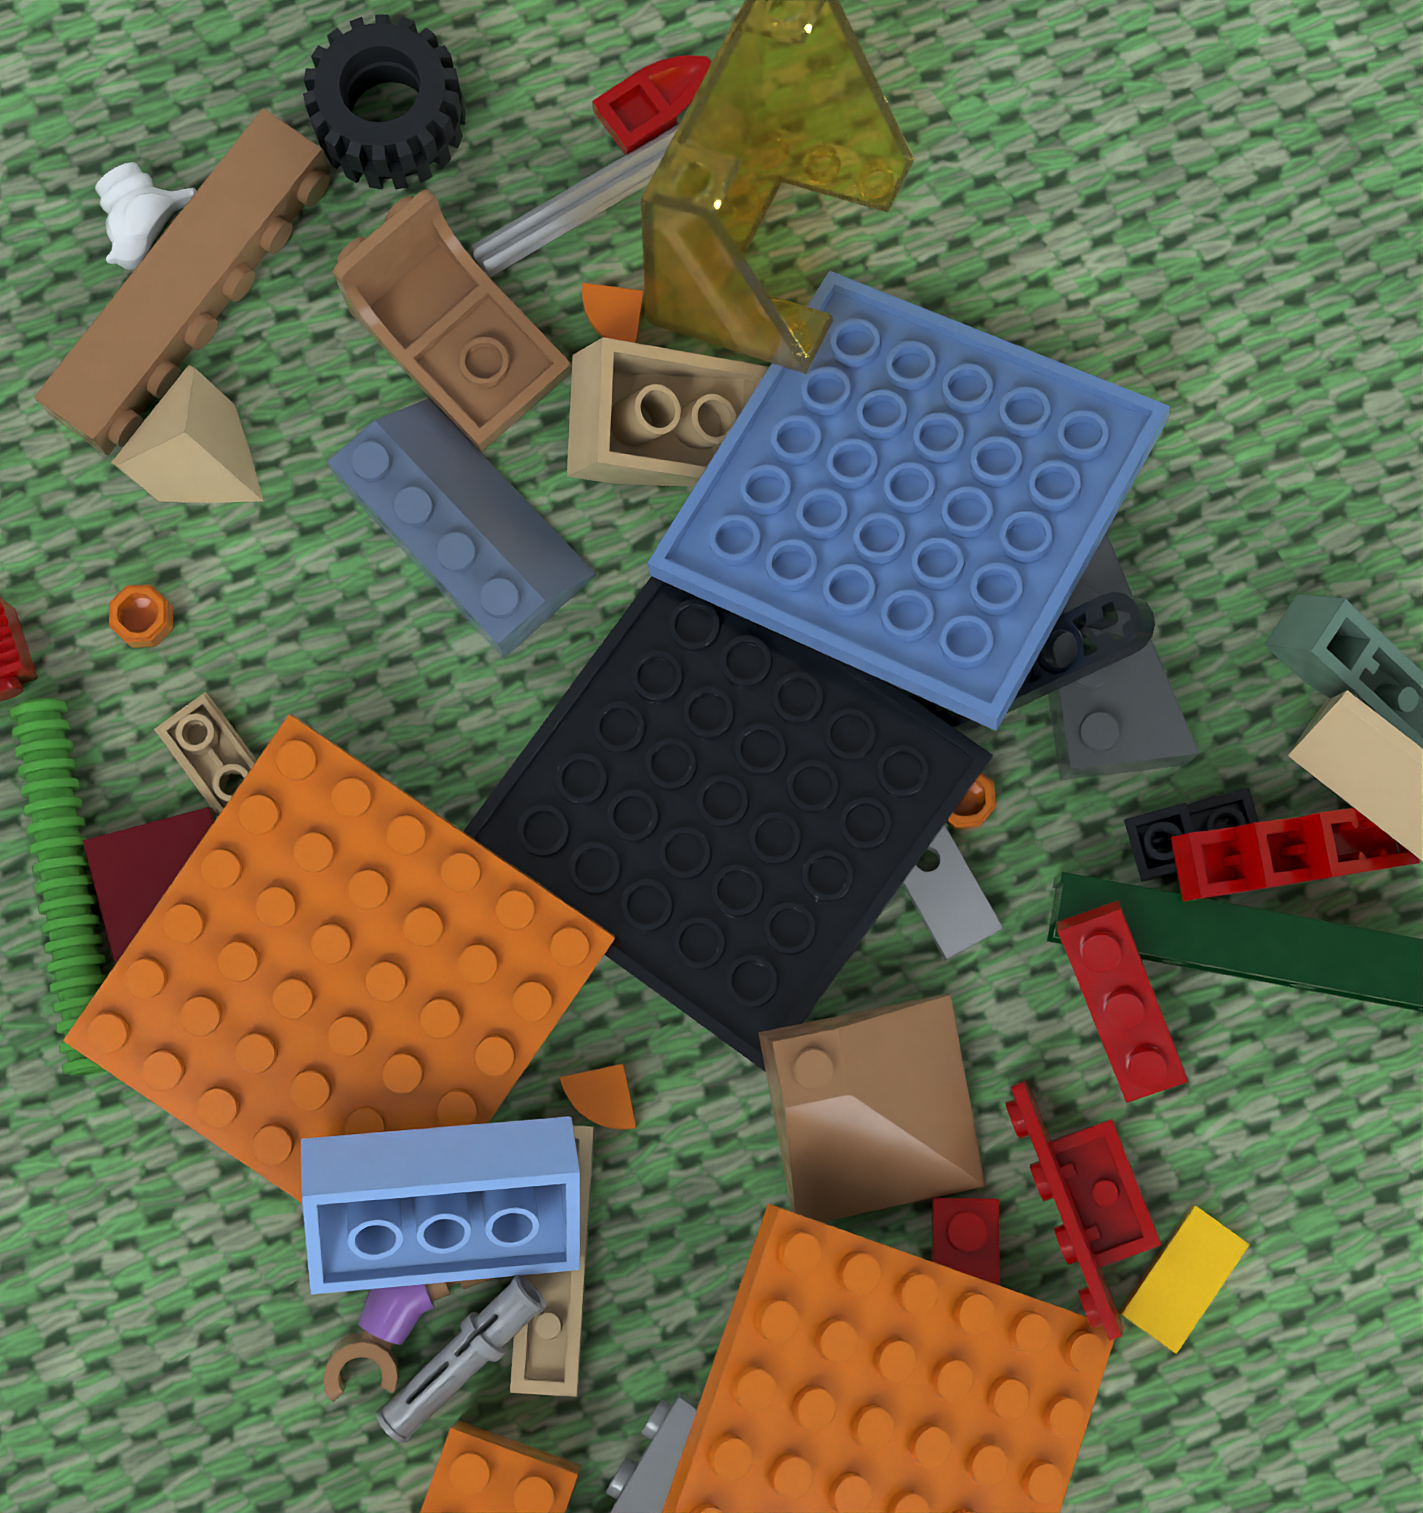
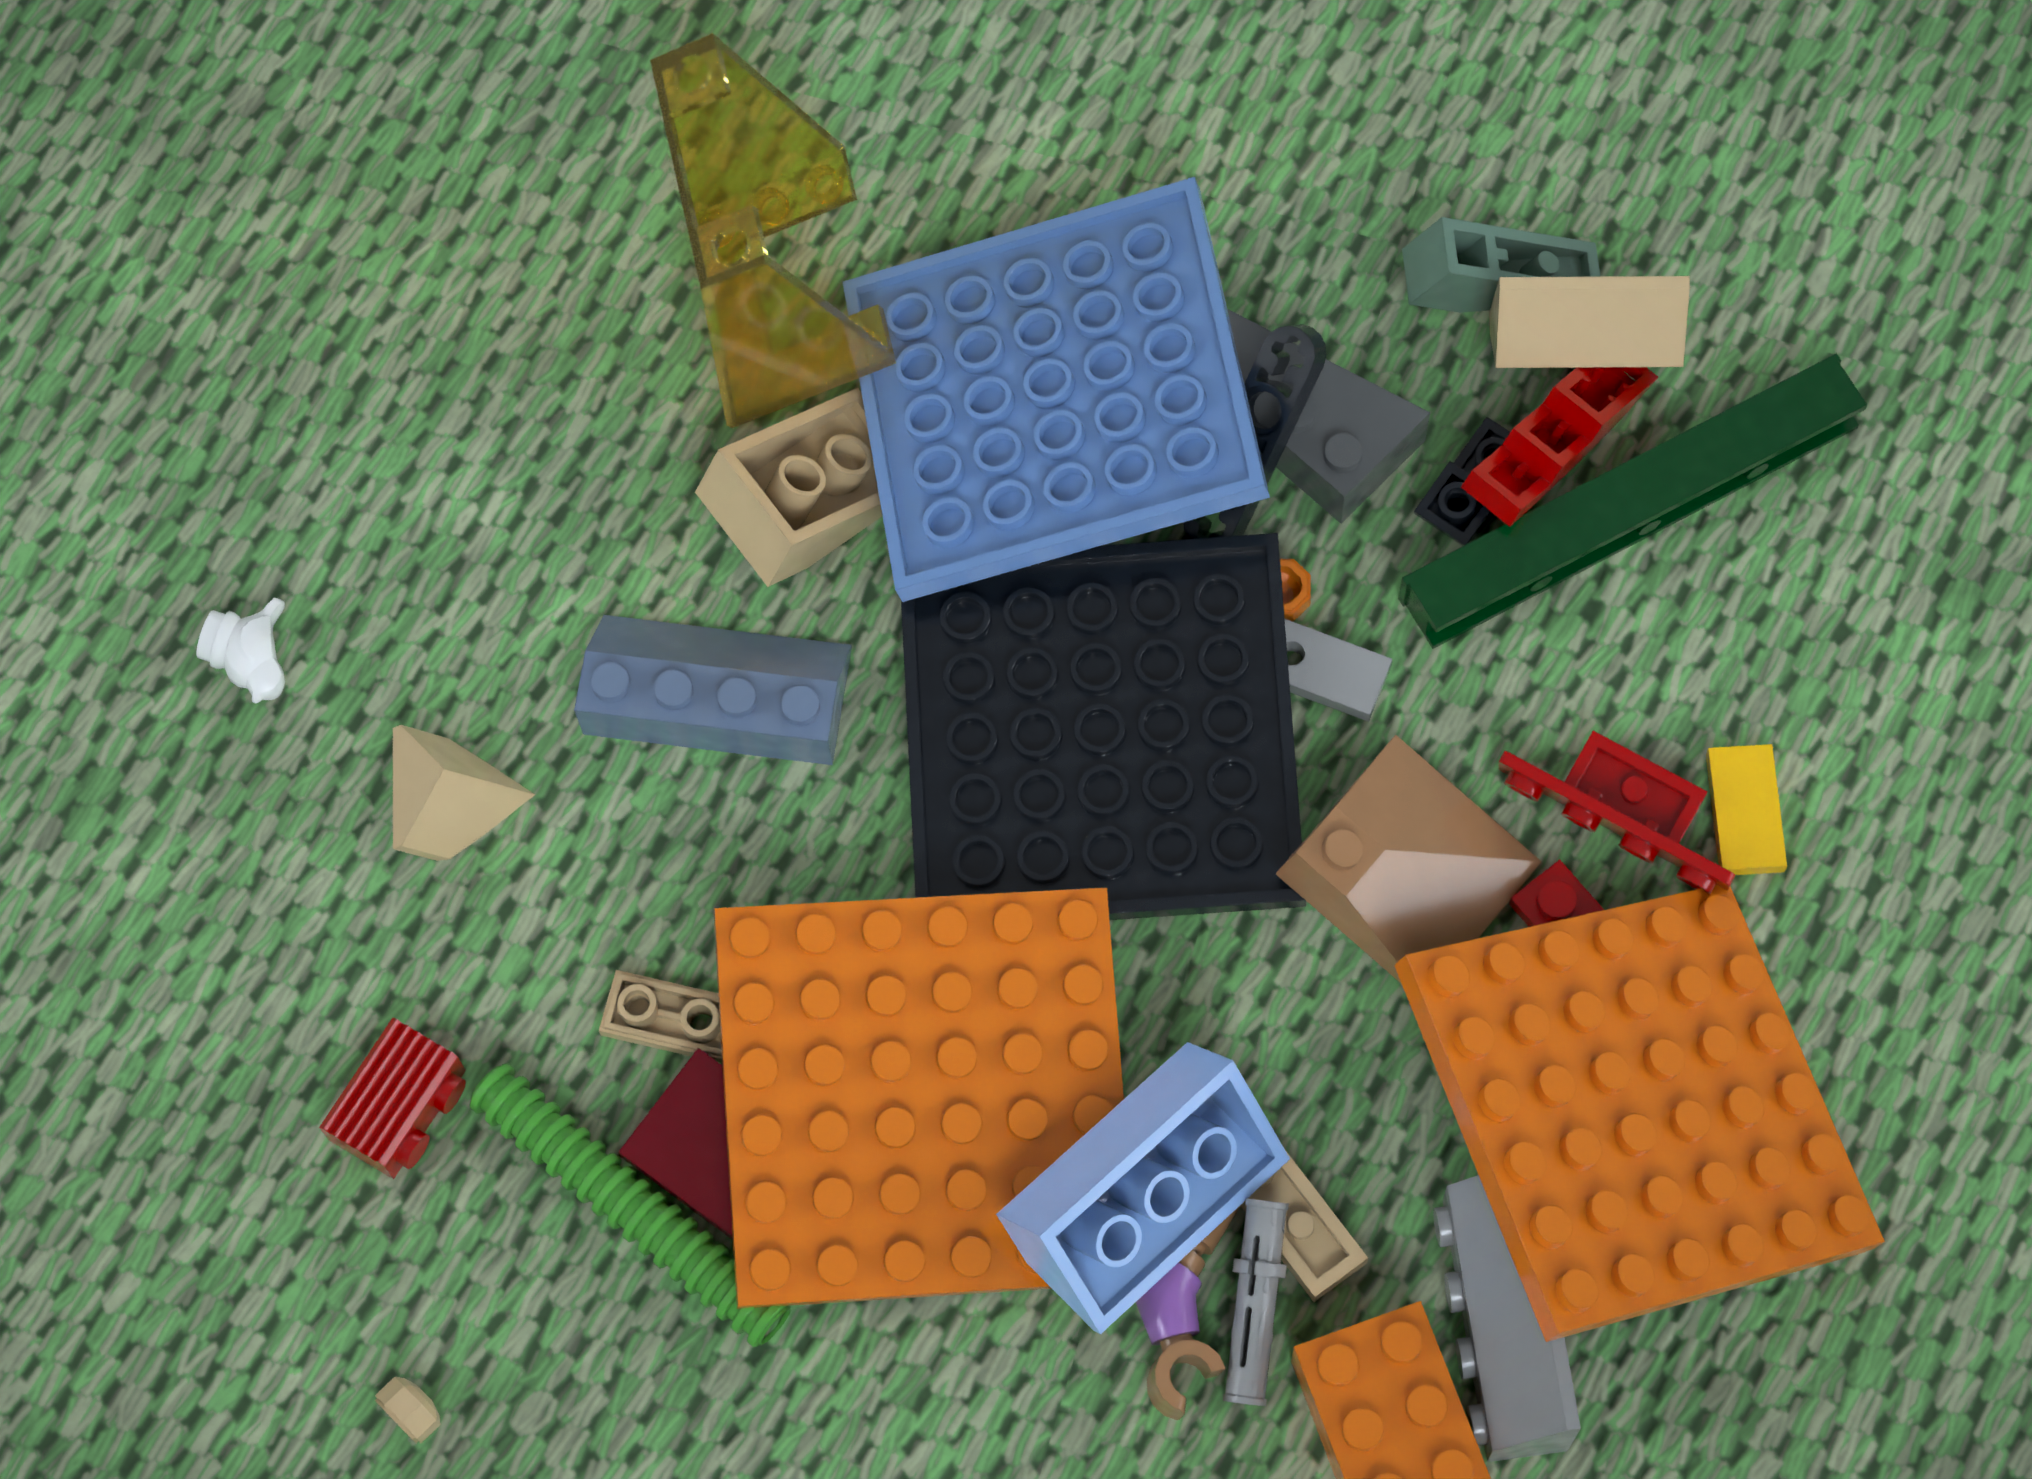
camera: 35 degrees left, 10 degrees down
(140, 616) = (513, 953): orange tile -> none
(186, 283) = (333, 673): medium nougat brick -> none
(377, 56) = (396, 456): black tyre -> none
(447, 321) = (577, 542): medium nougat bracket -> none
(570, 207) = (609, 354): light grey axle -> none
(602, 1096) = (1194, 1022): orange tile -> none
(613, 311) = (694, 438): orange tile -> none
(650, 100) = (592, 260): red plate -> none
(1122, 1001) = (1527, 638): red plate -> none

